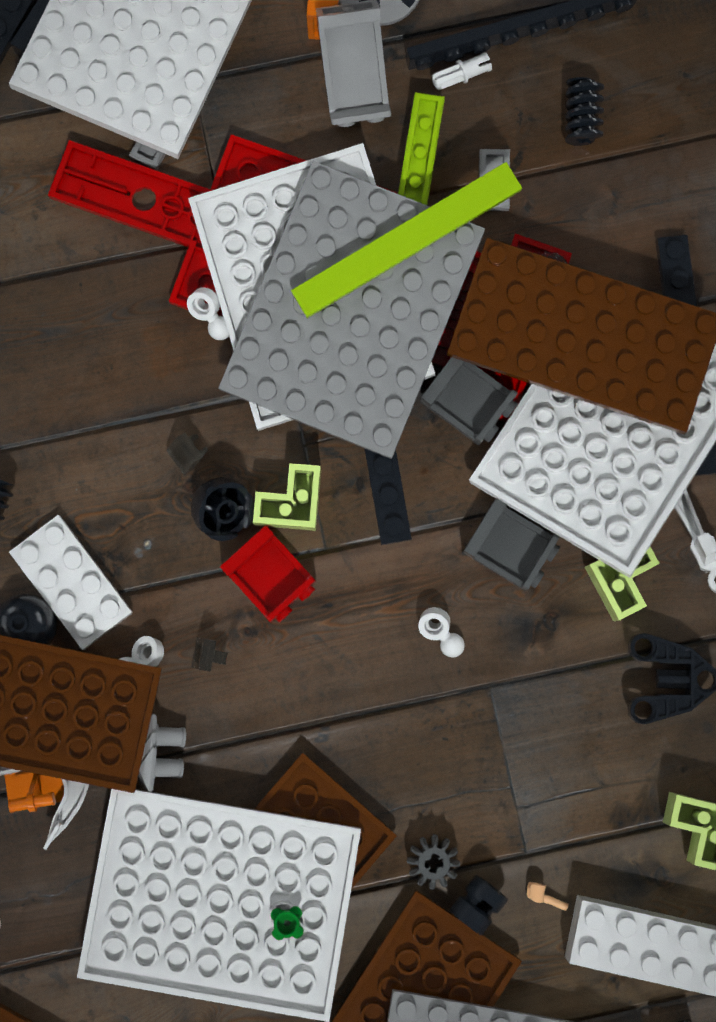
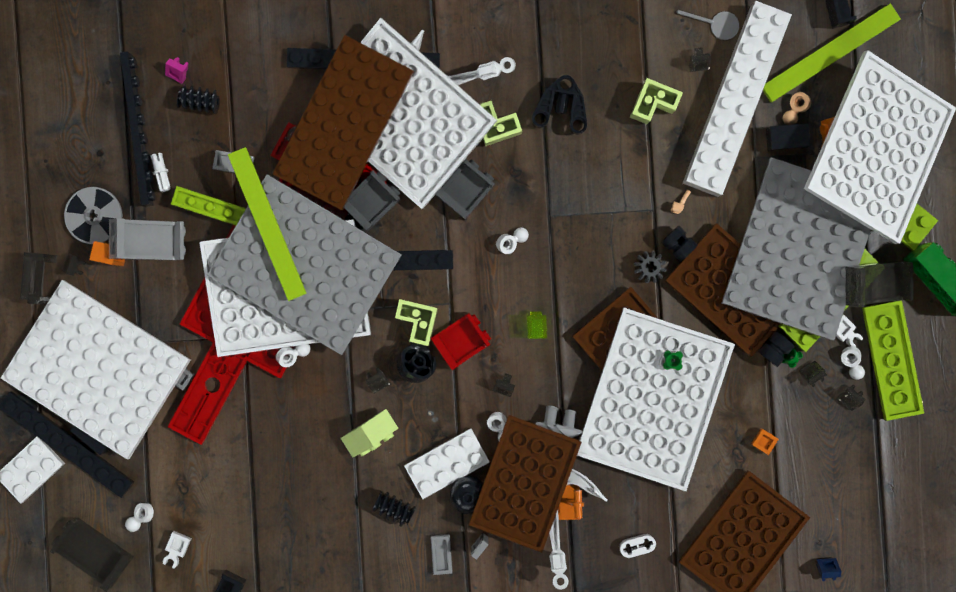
camera: 80 degrees left, 5 degrees up
(99, 451) = (369, 434): none -> yellowish green brick
(311, 692) = (536, 325): none -> clear neon green brick
(622, 71) = (176, 70): none -> dark pink tile

